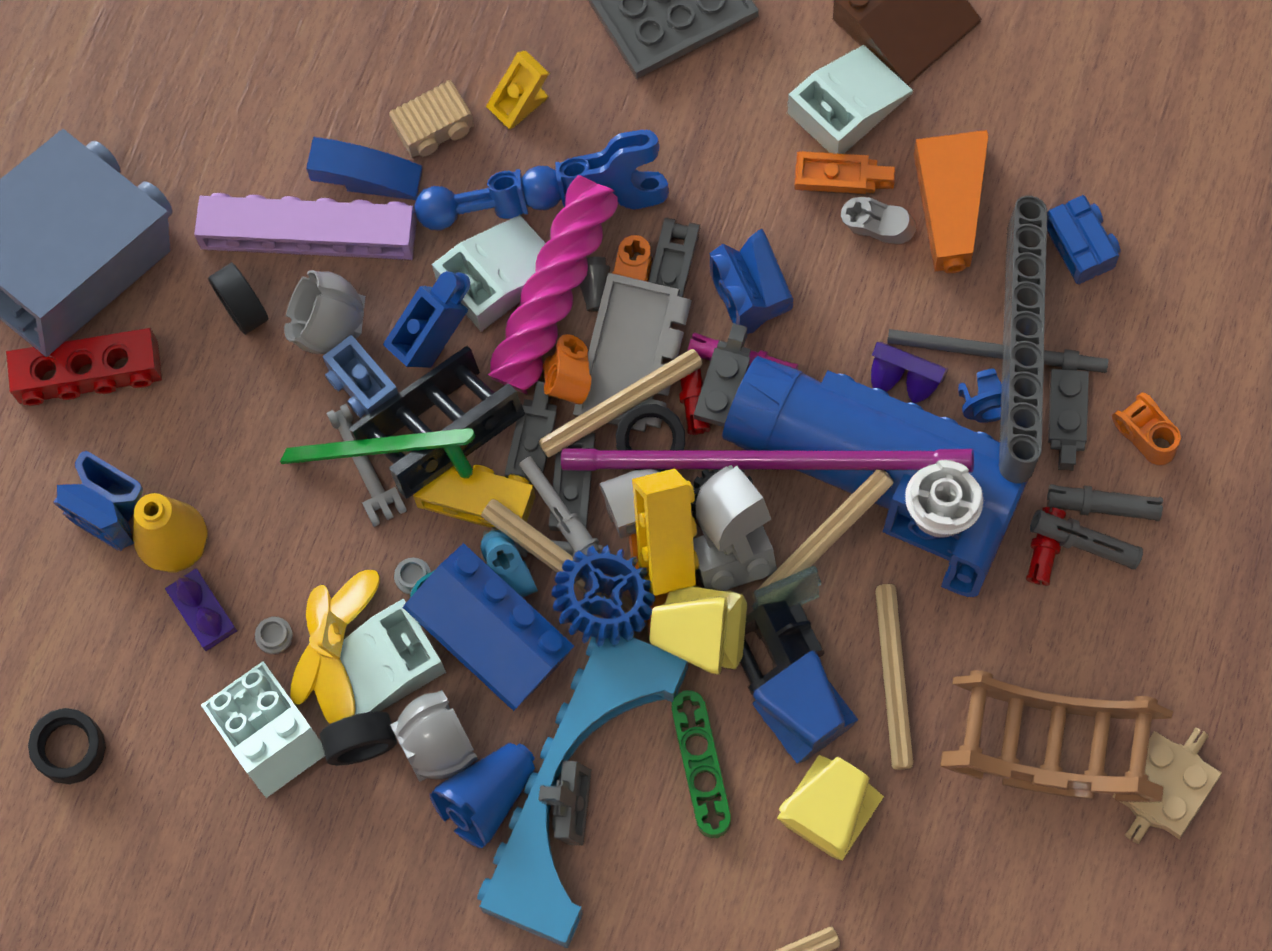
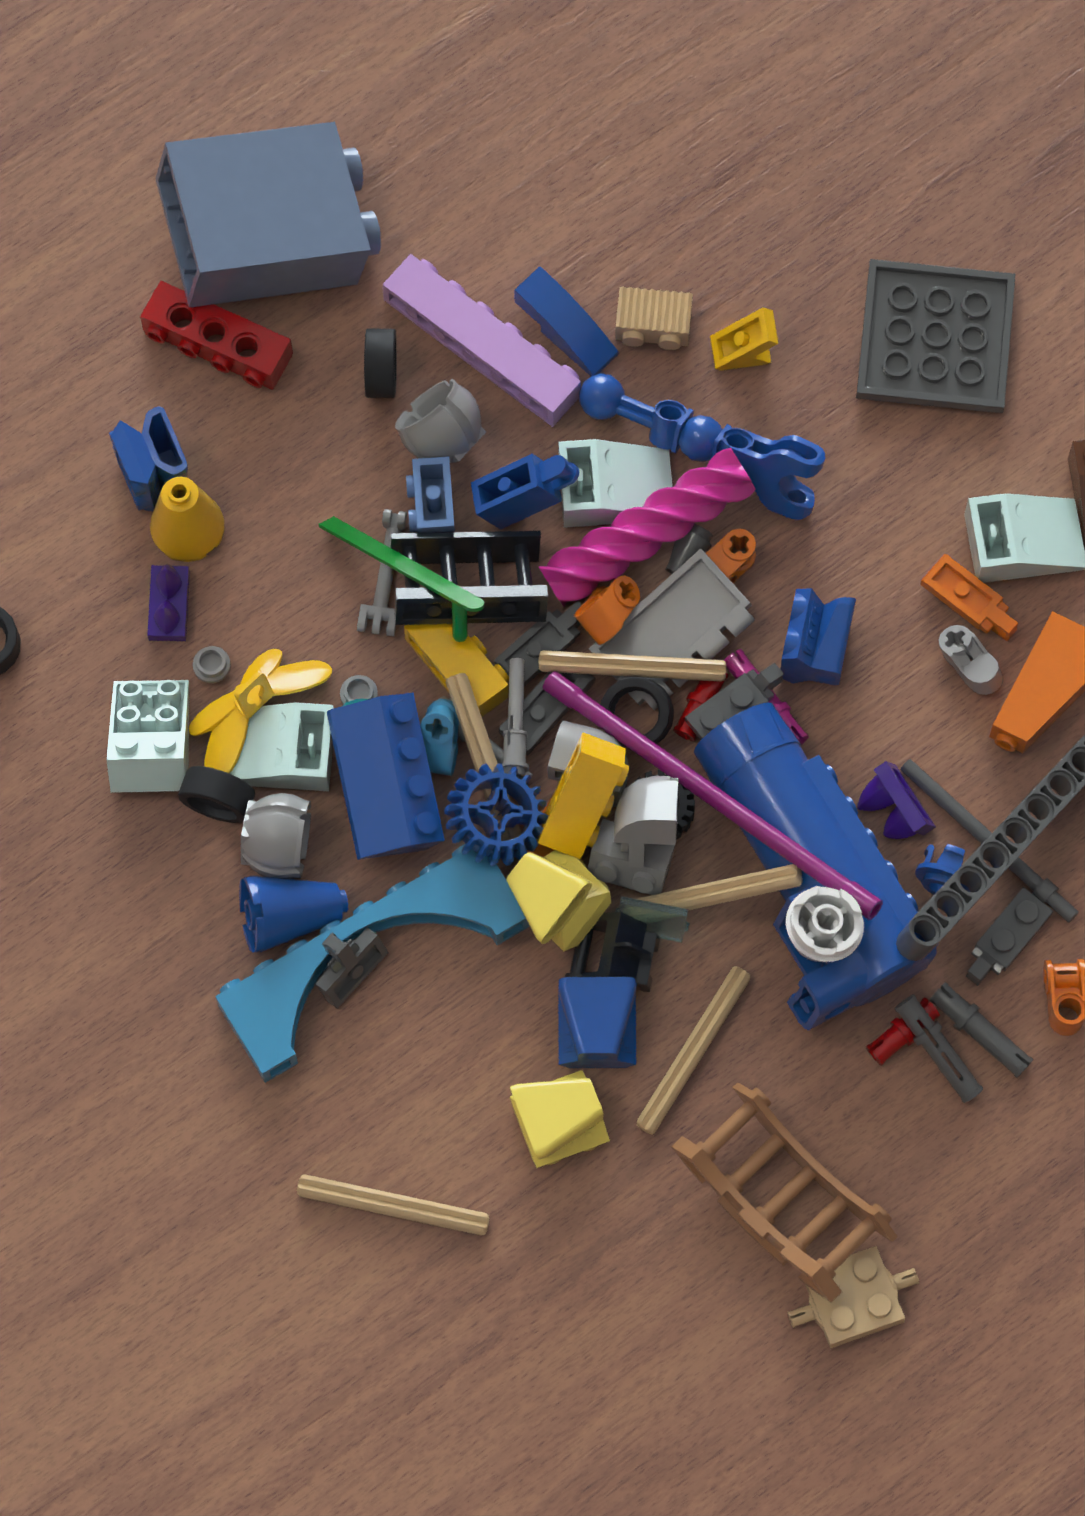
camera: 30 degrees right, 0 degrees up
(674, 260) = (769, 576): dark grey plate -> none
(701, 763) = (476, 1008): green beam -> none

